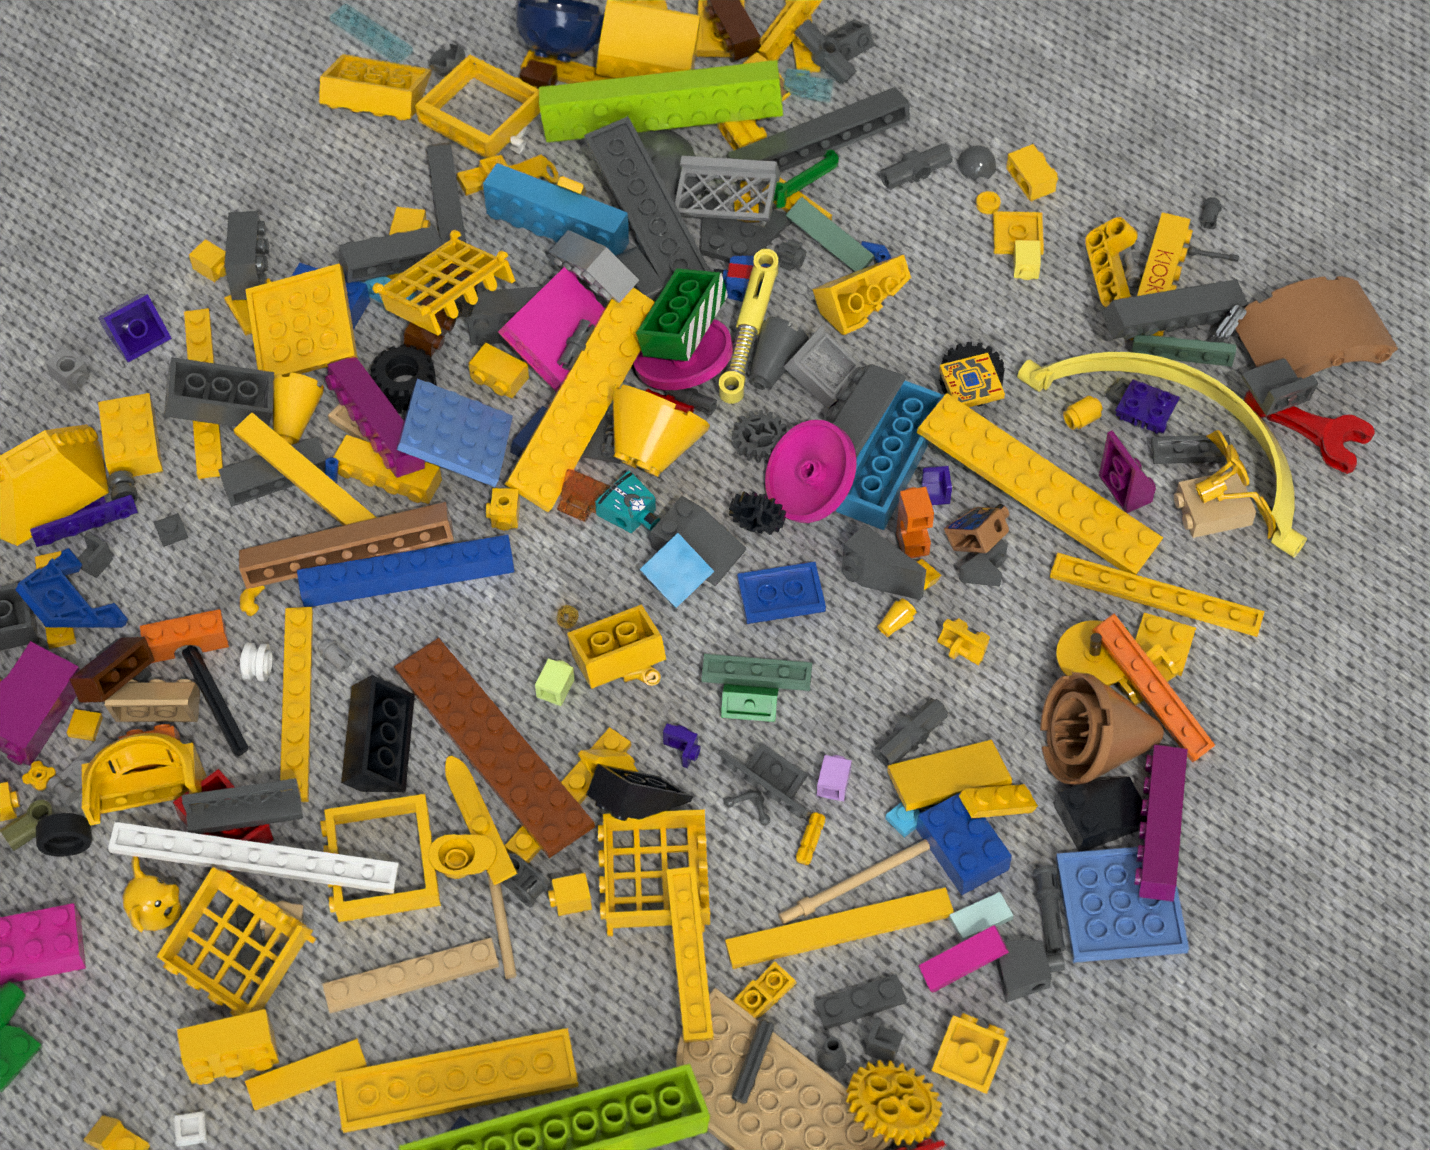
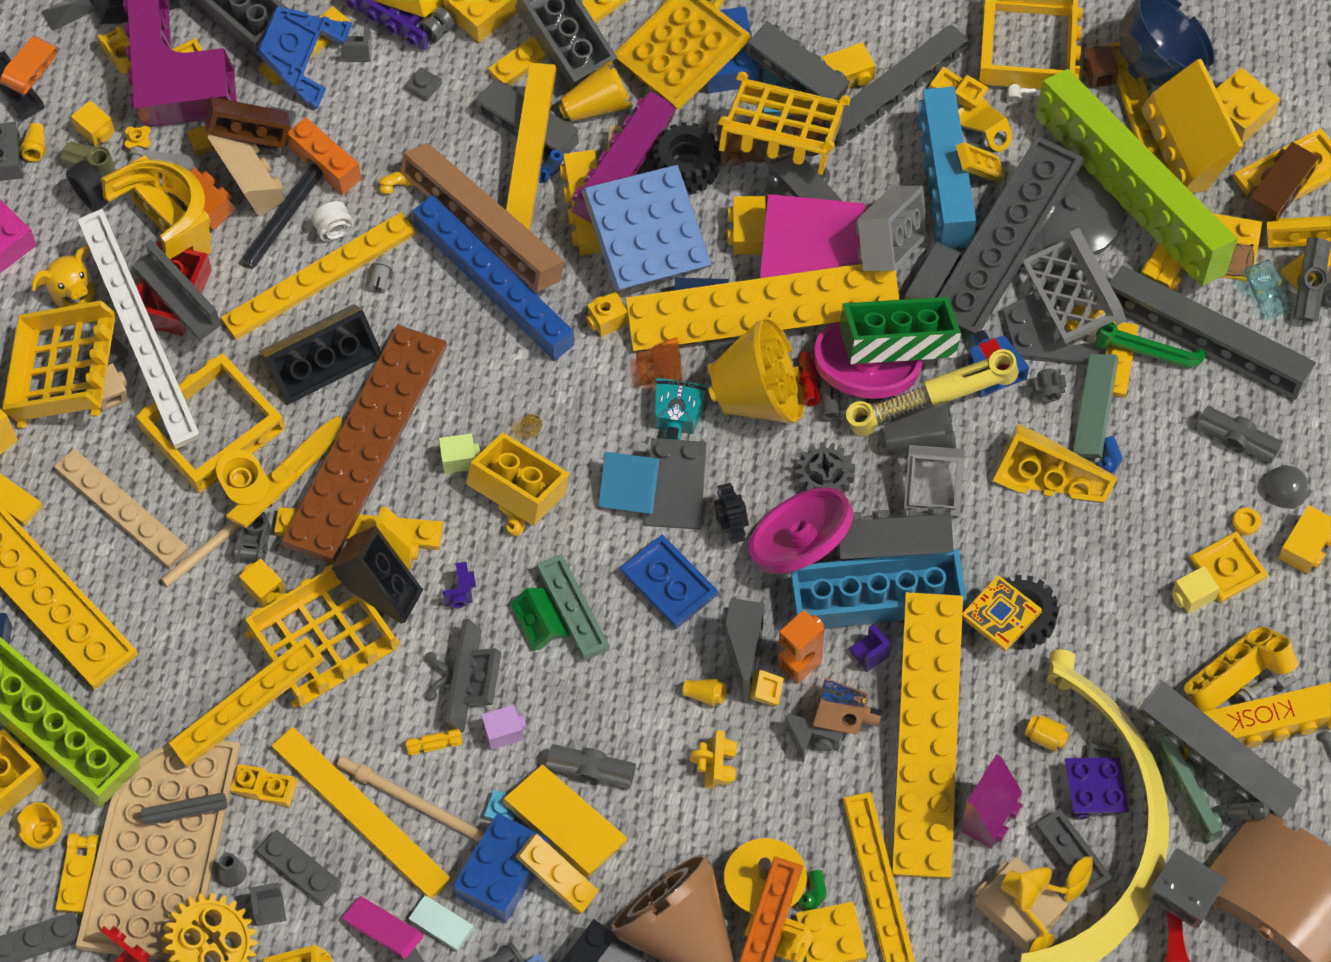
camera: 60 degrees right, 5 degrees up
(576, 344) = (798, 264): dark grey pin -> none

